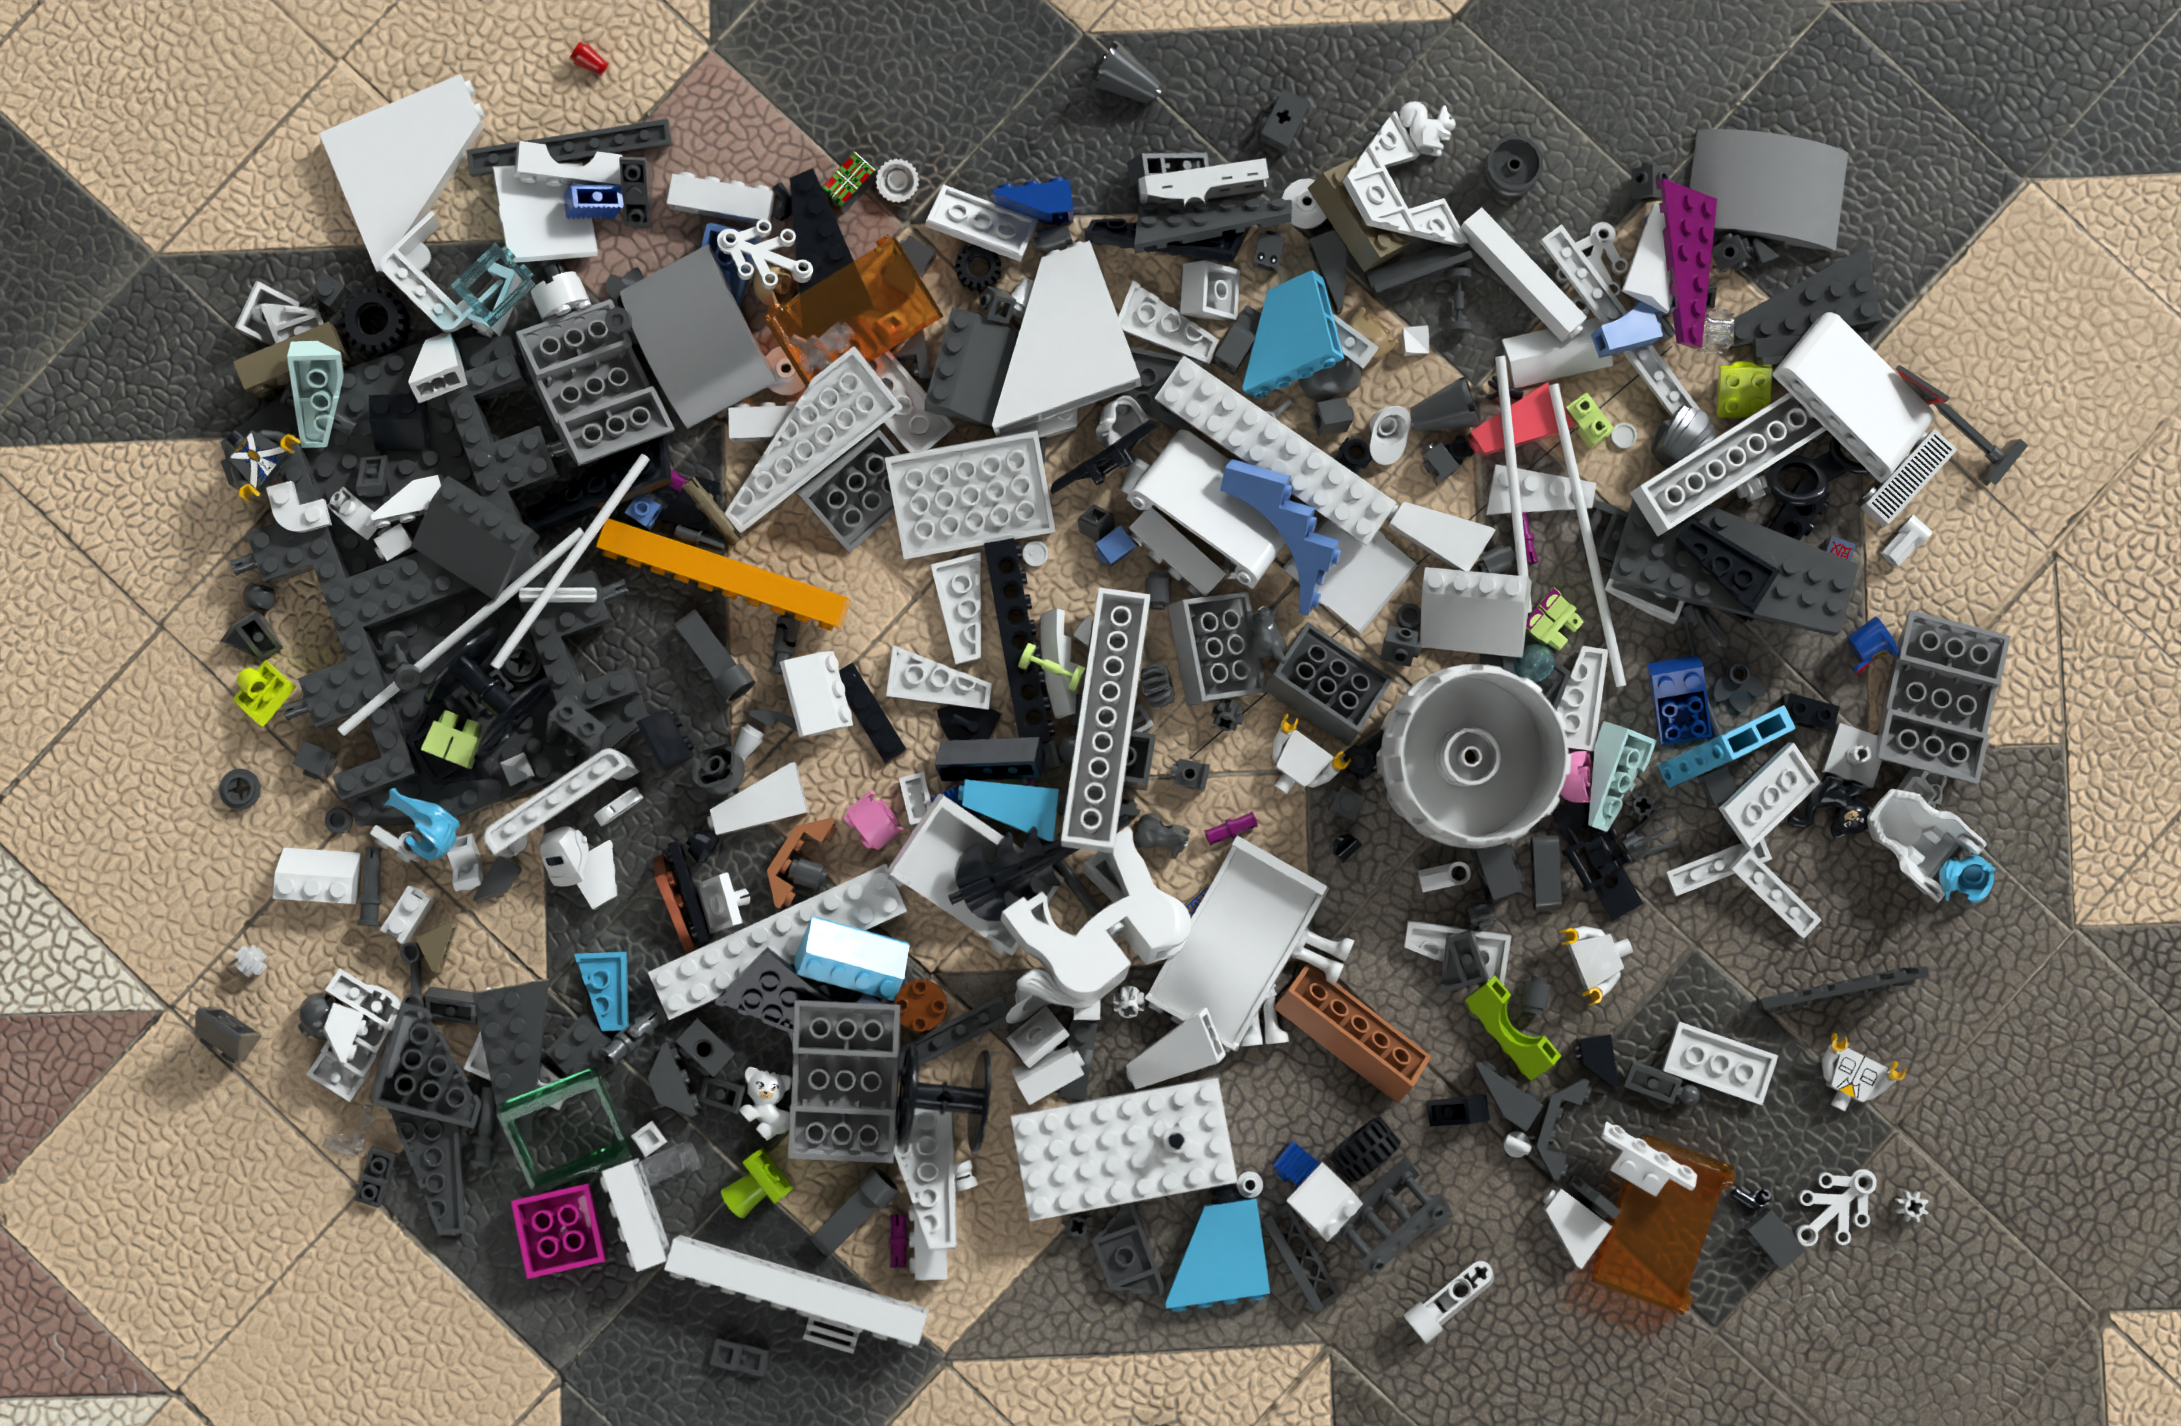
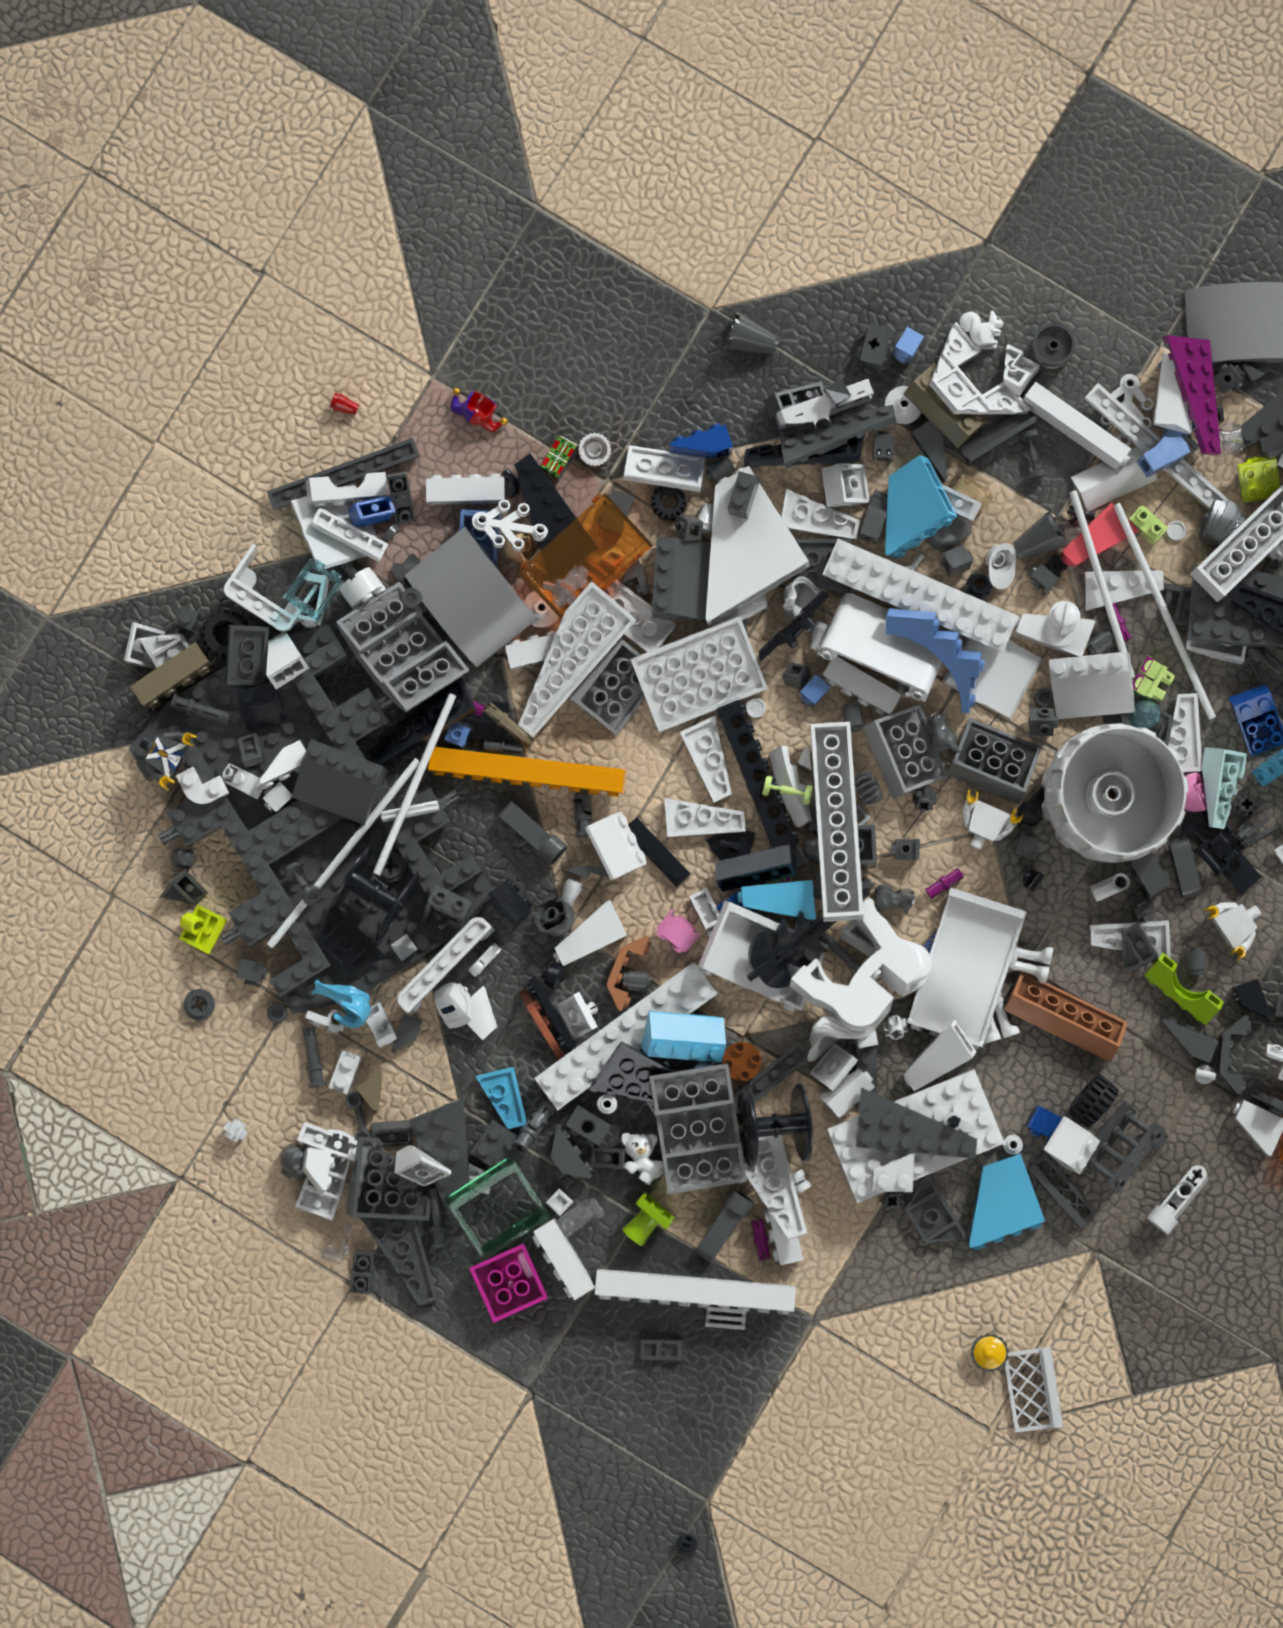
camera: 10 degrees left, 0 degrees up
(225, 1032) = (229, 1188): dark grey slope -> none
(316, 387) = (197, 691): light aqua wedge -> none
(318, 876) = (271, 1057): white slope -> none
(392, 351) = (247, 655): none -> dark grey plate
(402, 159) = (219, 508): white slope -> none
(451, 743) = (363, 935): yellowish green hips -> none
(473, 1056) = (419, 1166): none -> white slope
(557, 224) = (348, 534): none -> white plate
(613, 235) = (390, 533): none -> dark grey tile
(744, 1025) = (612, 1108): none -> white brick
(757, 100) = (477, 410): none -> red piece
(1073, 275) = (743, 495): none -> dark grey brick
(1085, 1195) = (895, 1176): none -> white wing
(1101, 1134) = (898, 1128): none -> dark grey wing
(1222, 167) = (837, 392): none -> dark grey slope
(1223, 1194) = (994, 1155): black wheel -> none
(1326, 128) = (907, 346): none -> light blue brick
(1415, 340) = (1006, 491): white slope -> none
(1452, 524) = (1062, 623): none -> white piece
(1458, 1110) = (1156, 1058): black slope -> none
(1462, 188) = (1018, 370): none -> white slope
(1644, 182) = (1153, 338): dark grey brick -> none

